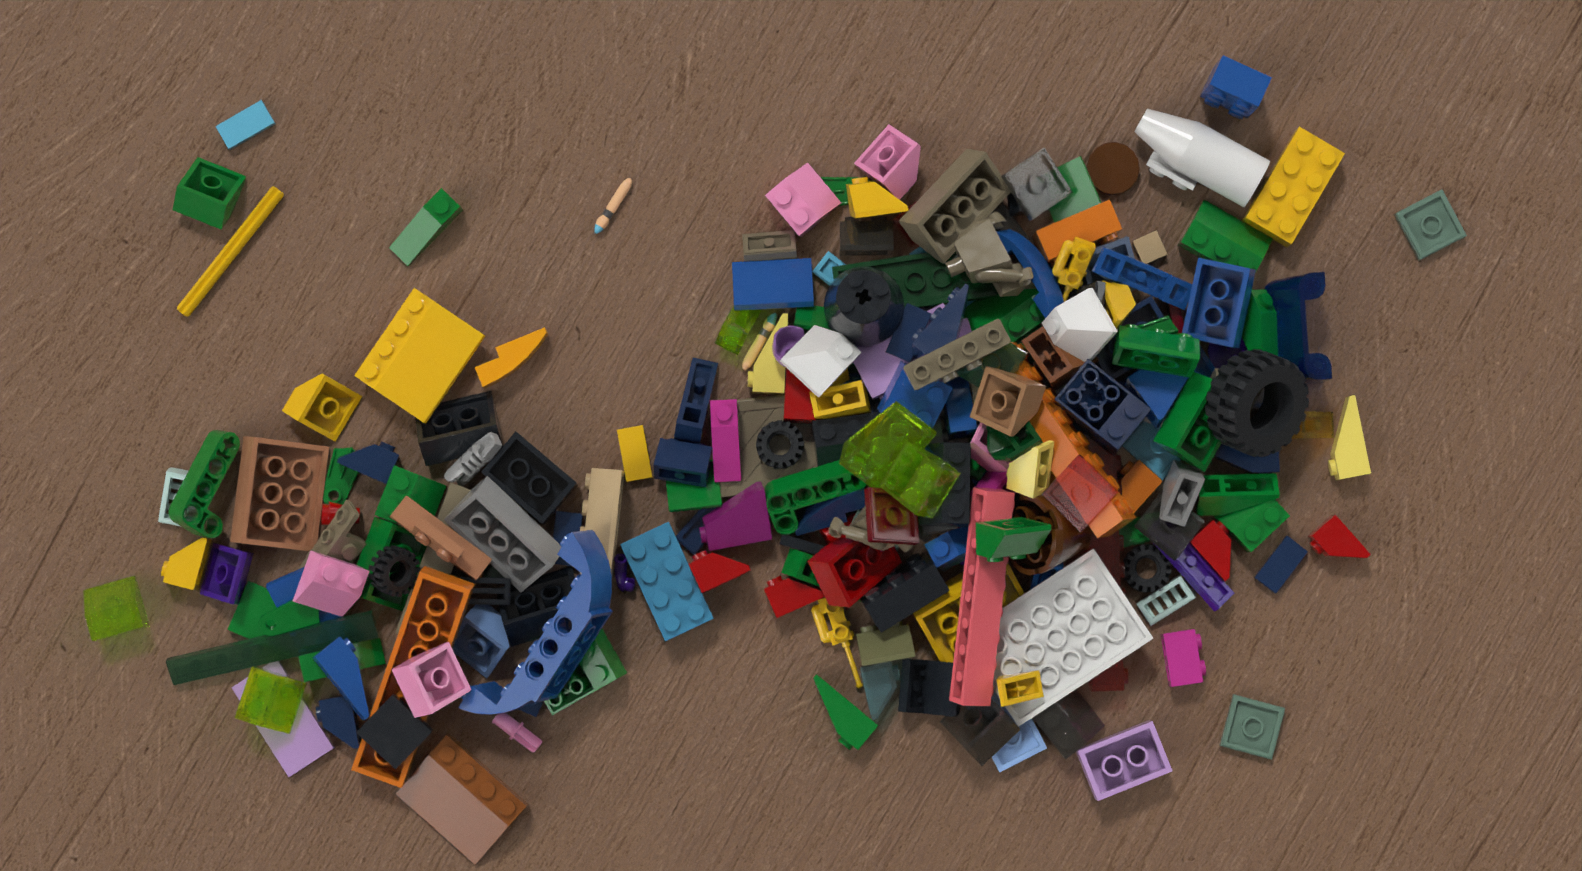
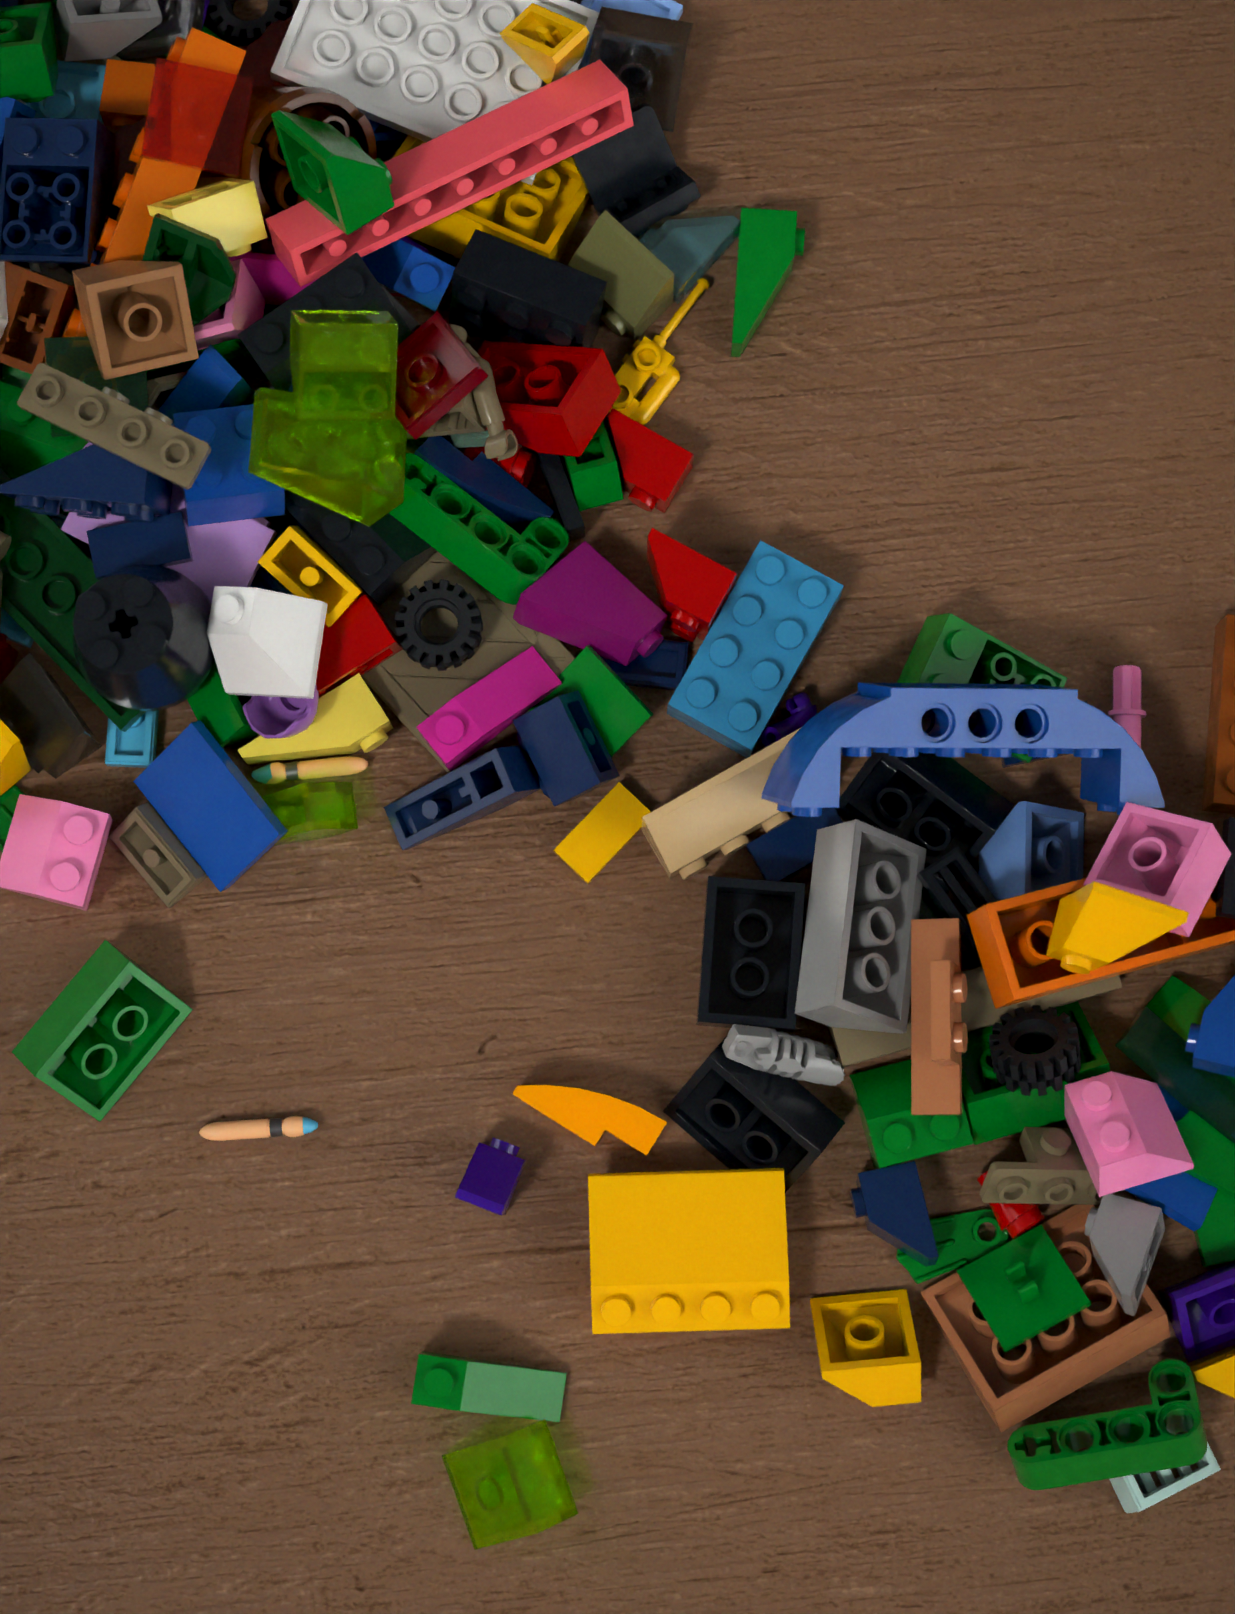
camera: 125 degrees left, 5 degrees down
(282, 548) = (1125, 1245): none -> light grey slope
(297, 491) = (1023, 1288): none -> green piece
(376, 206) = (510, 1485): none -> clear neon green slope
(419, 632) = (1105, 924): none -> yellow slope
(514, 292) = (491, 1176): none -> dark purple slope
(706, 166) = (101, 1031): none -> green slope

